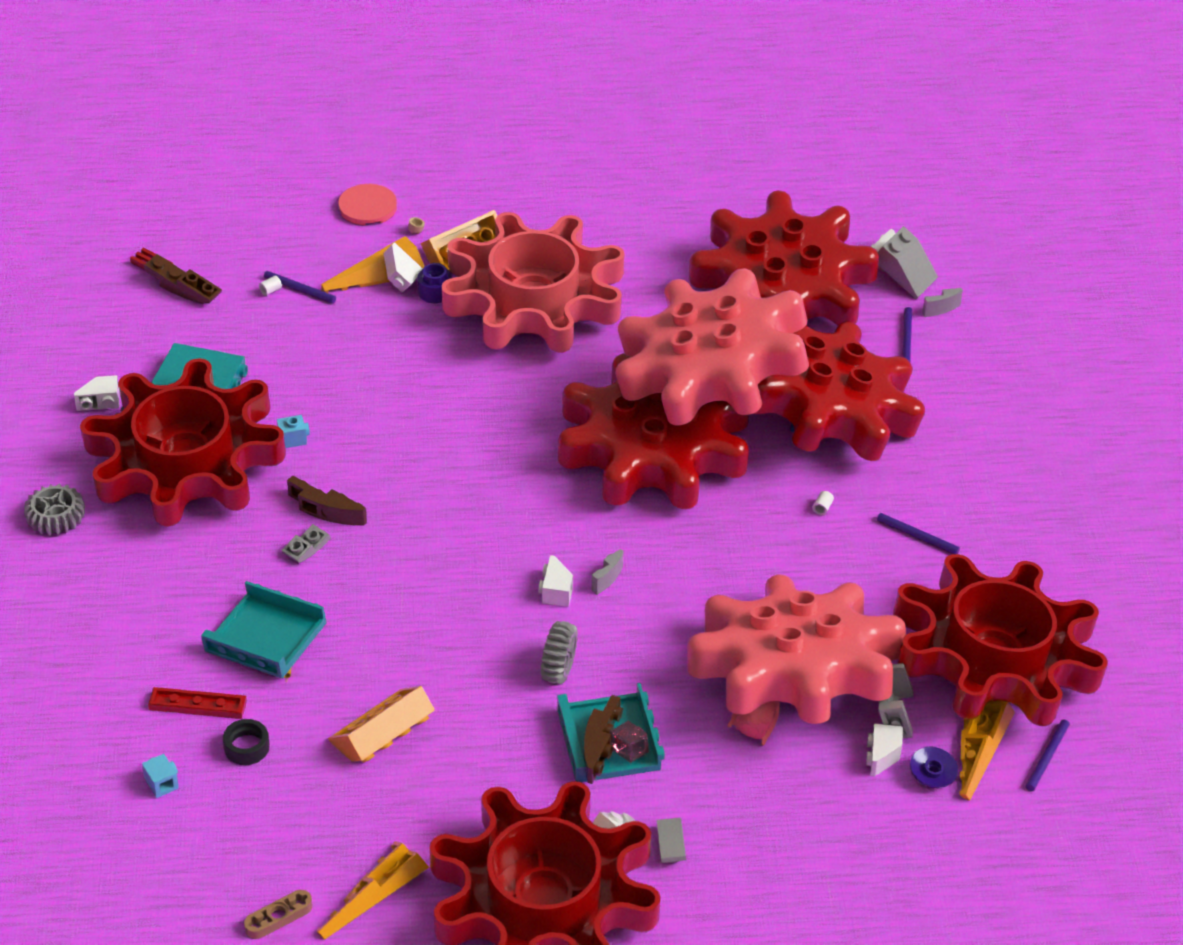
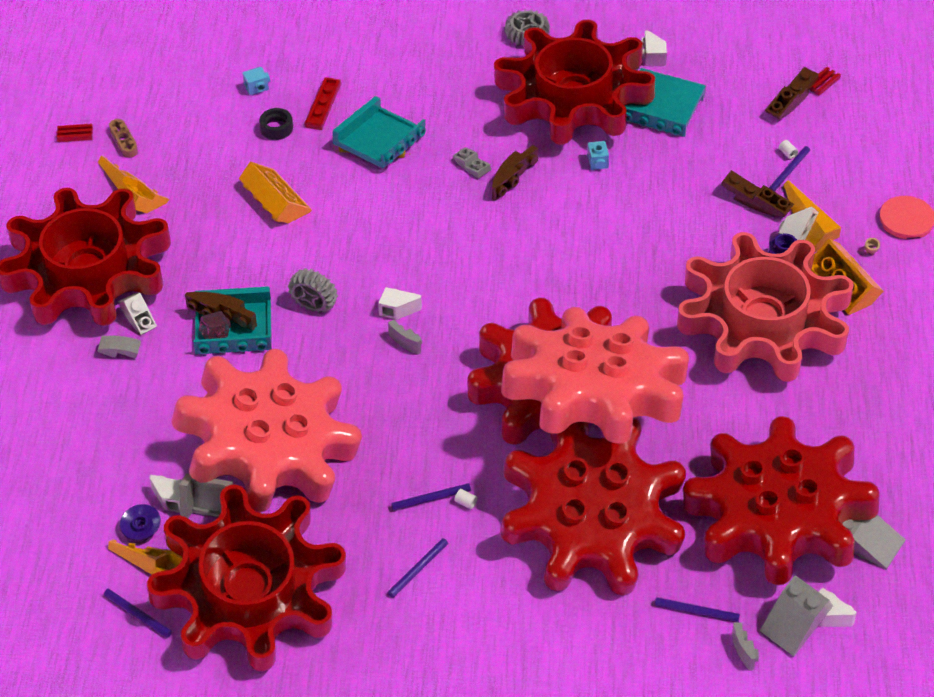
camera: 100 degrees right, 5 degrees up
(352, 305) = (757, 198): none -> reddish brown slope
(831, 541) = (429, 497): none -> dark purple bar

